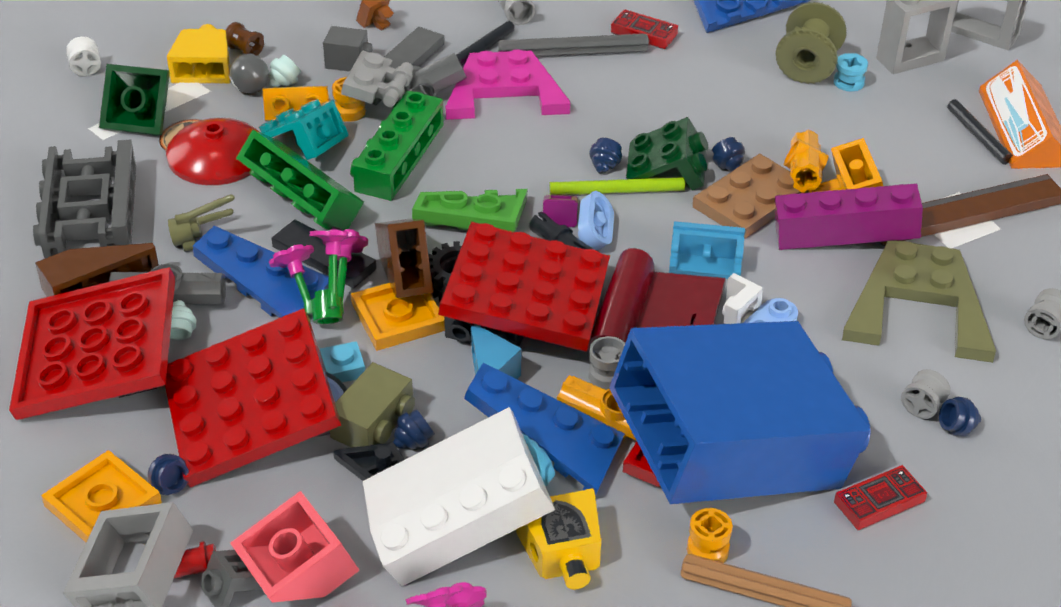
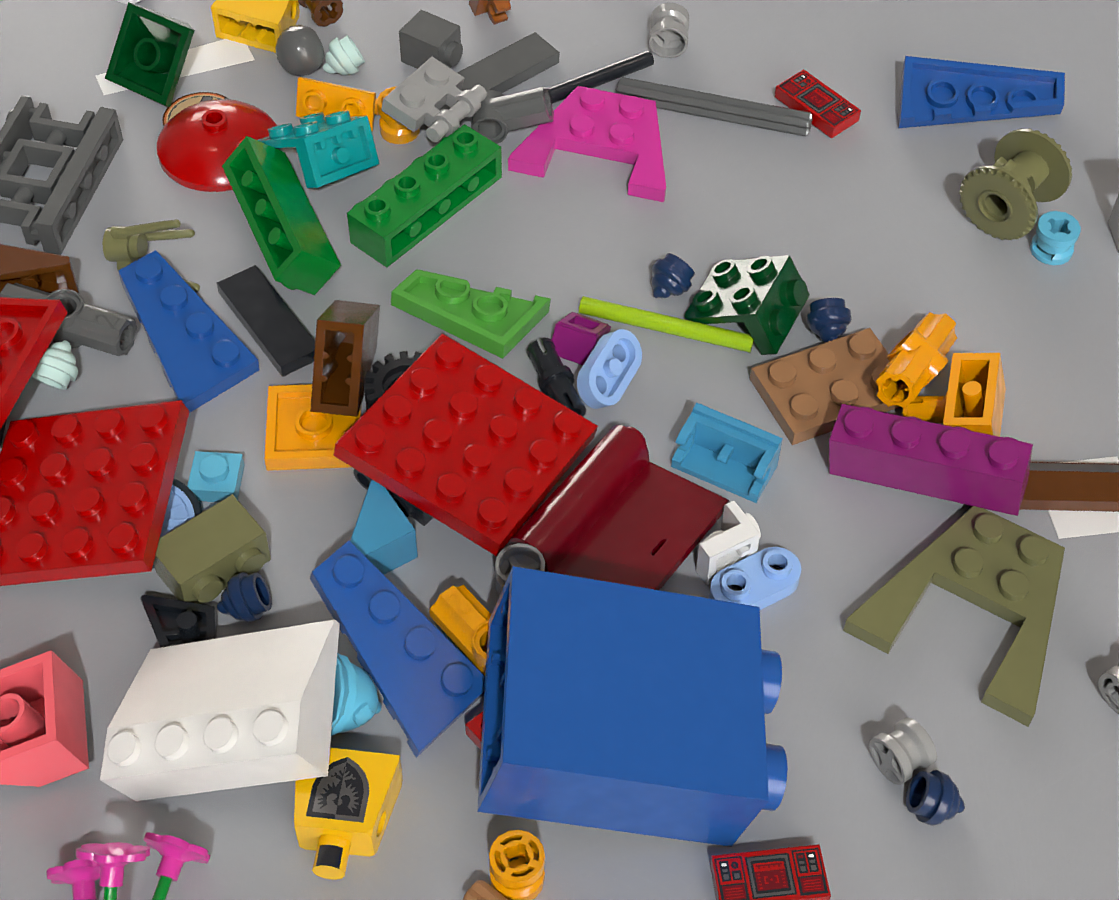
camera: 20 degrees right, 10 degrees up
(328, 303) = (229, 395): plant -> none

